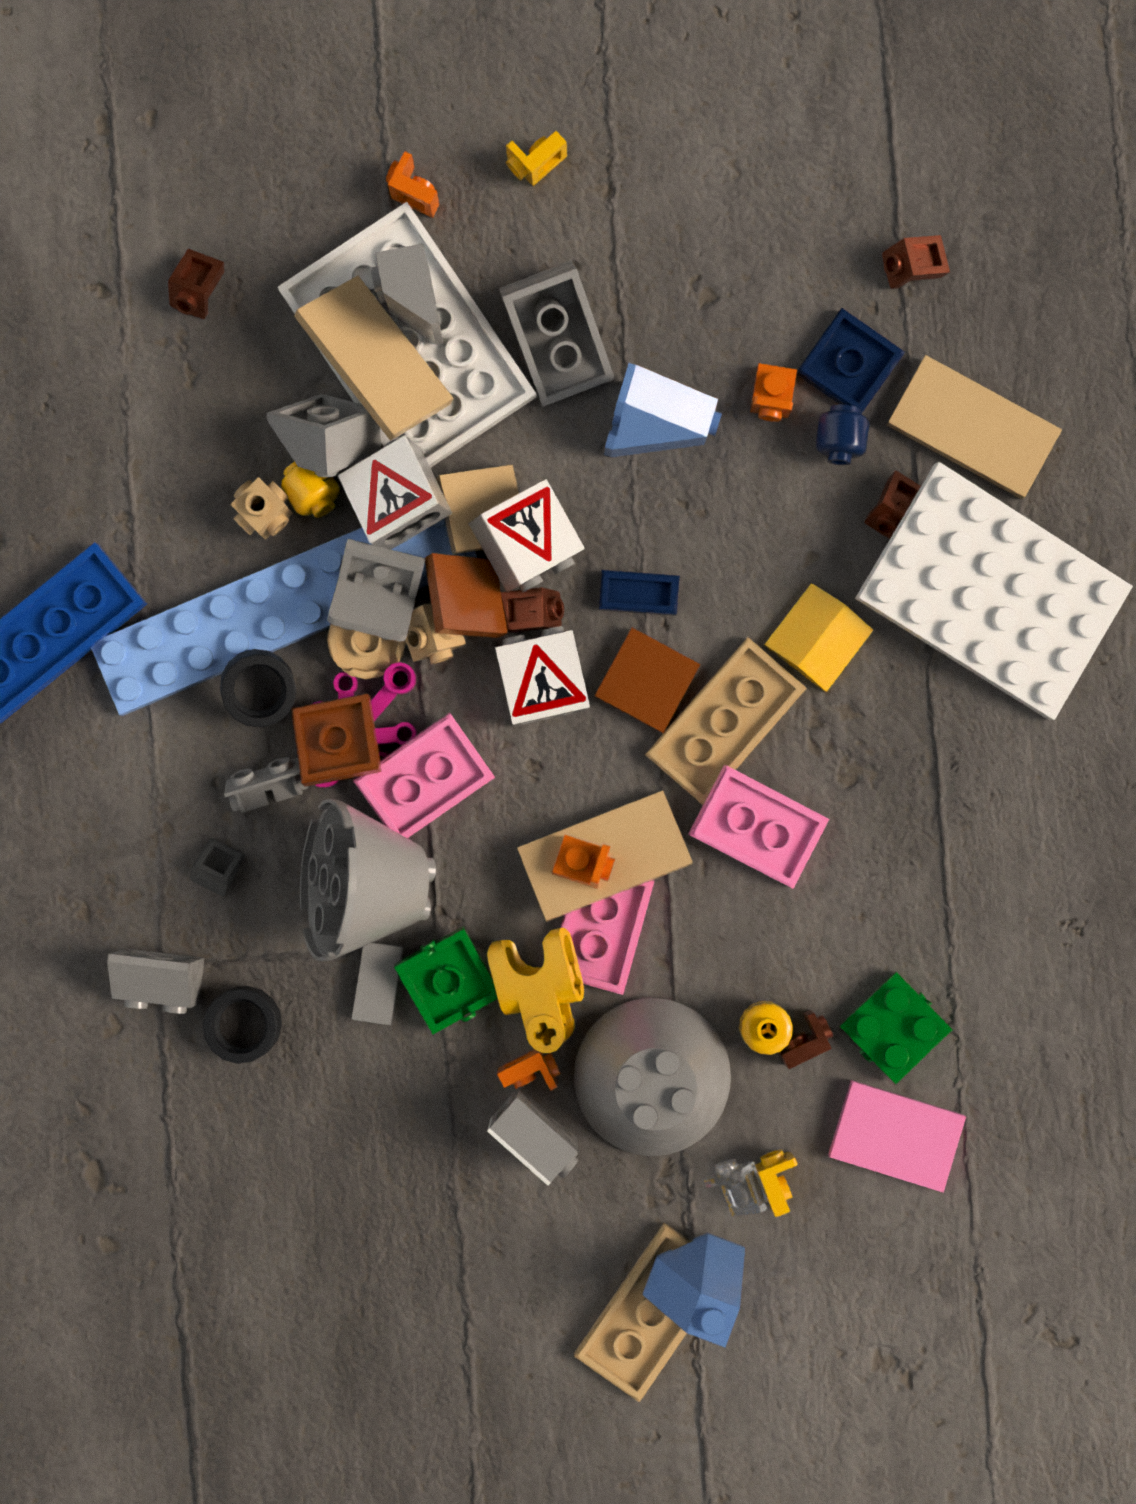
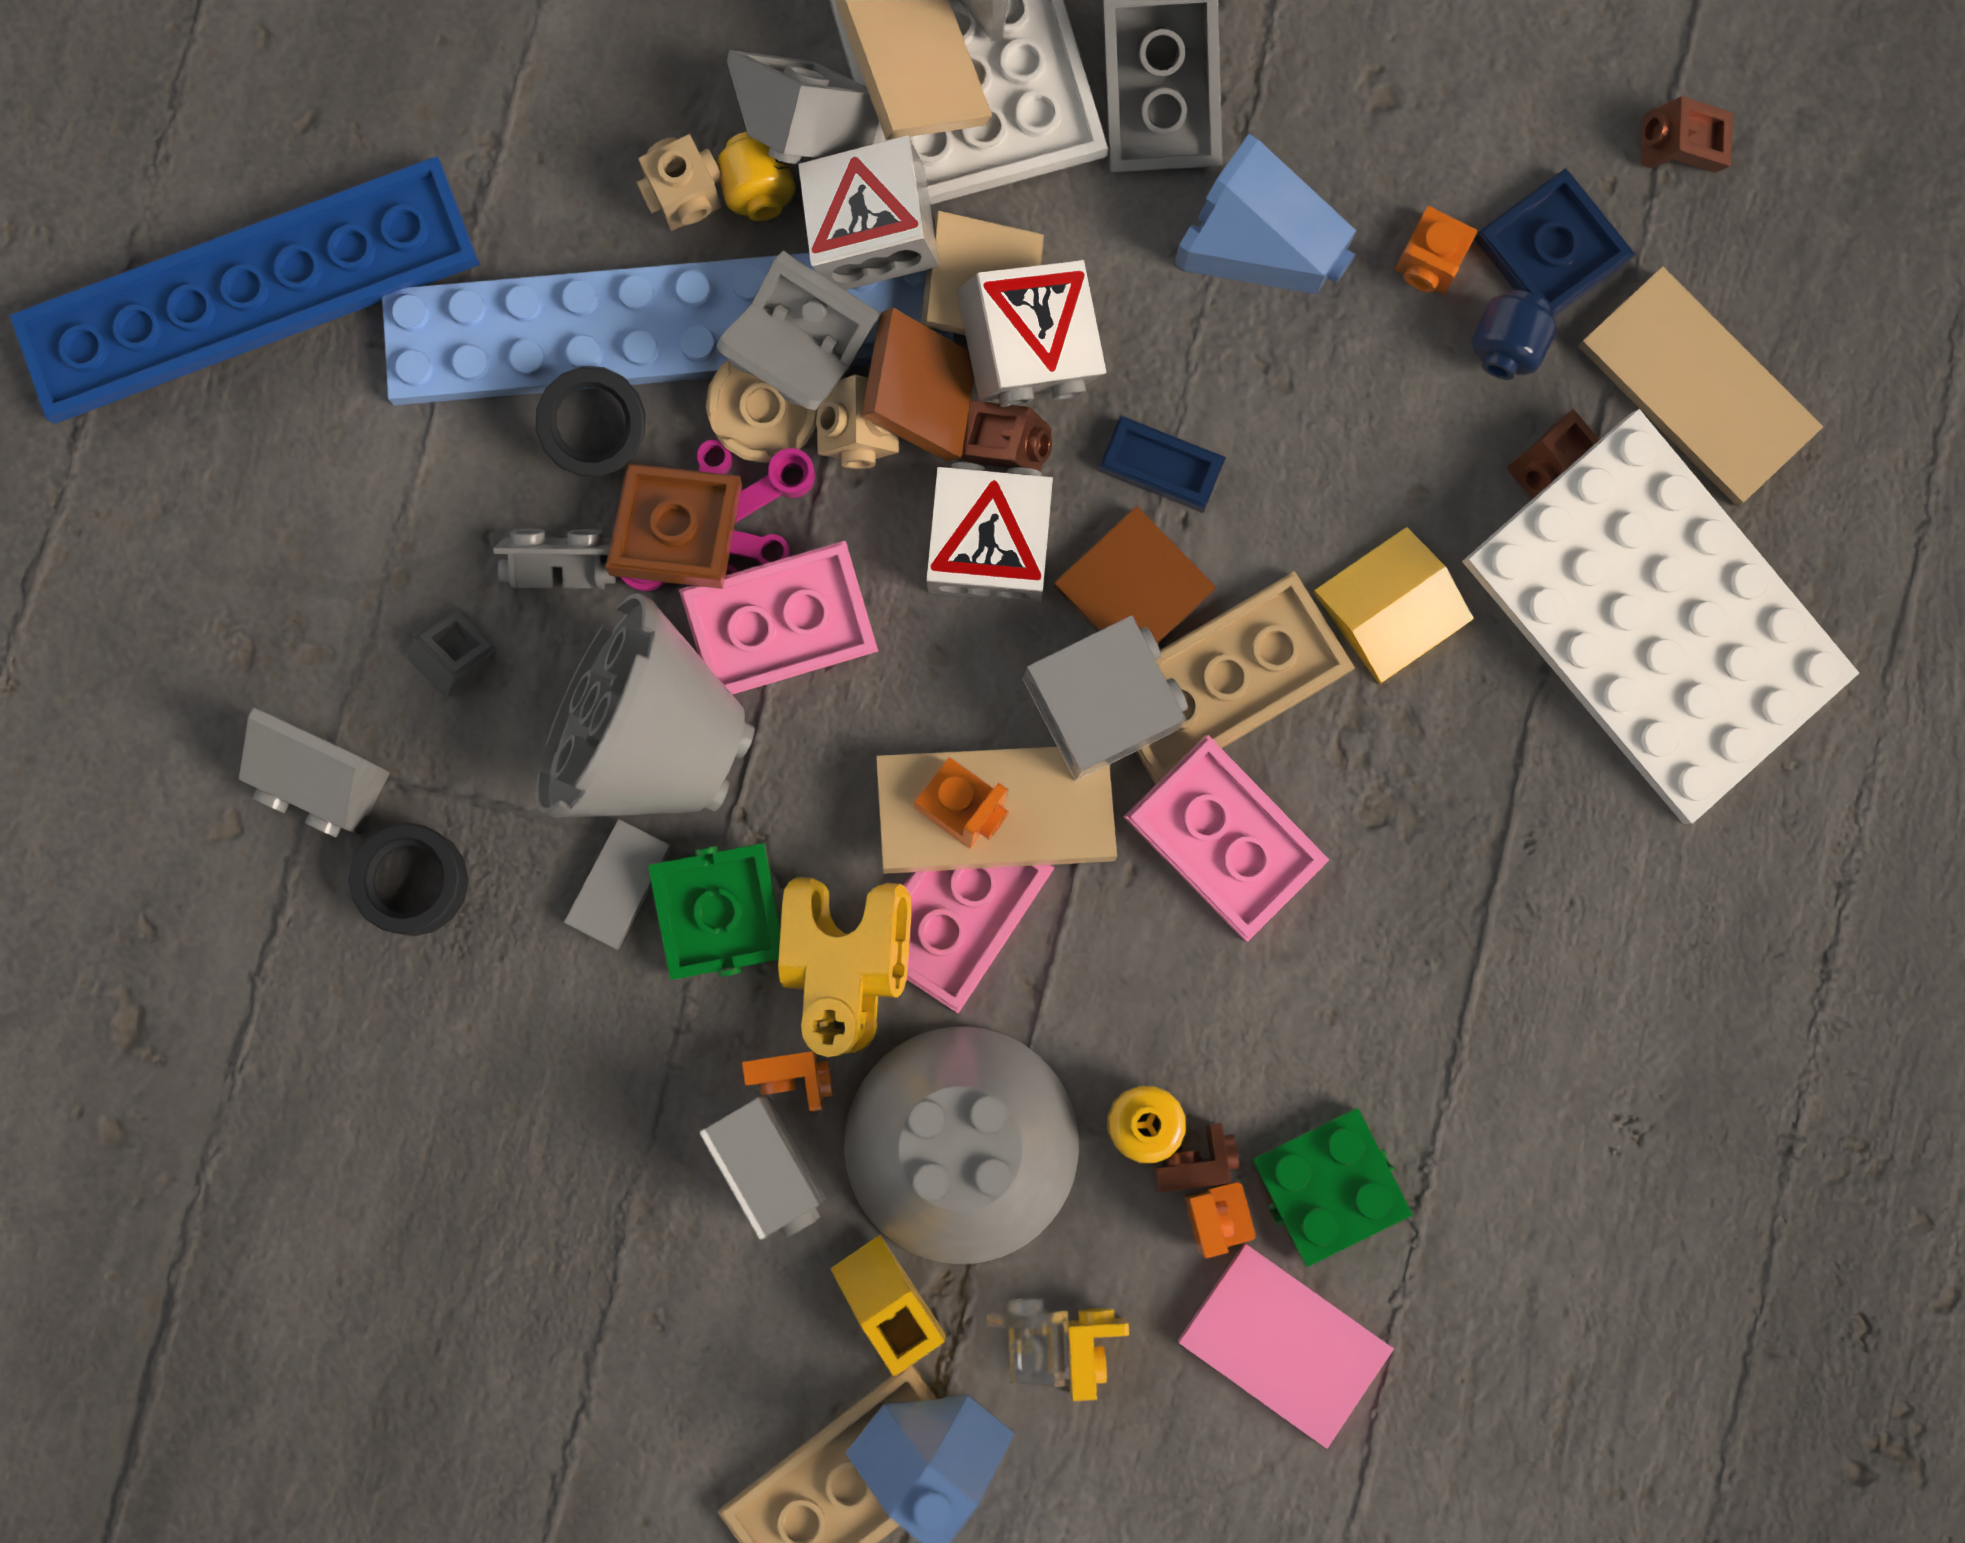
camera: 15 degrees right, 5 degrees down
(640, 1195) = (888, 1305): none -> yellow slope
(653, 763) = (1105, 696): none -> light grey piece
(831, 1072) = (1219, 1218): none -> orange bracket

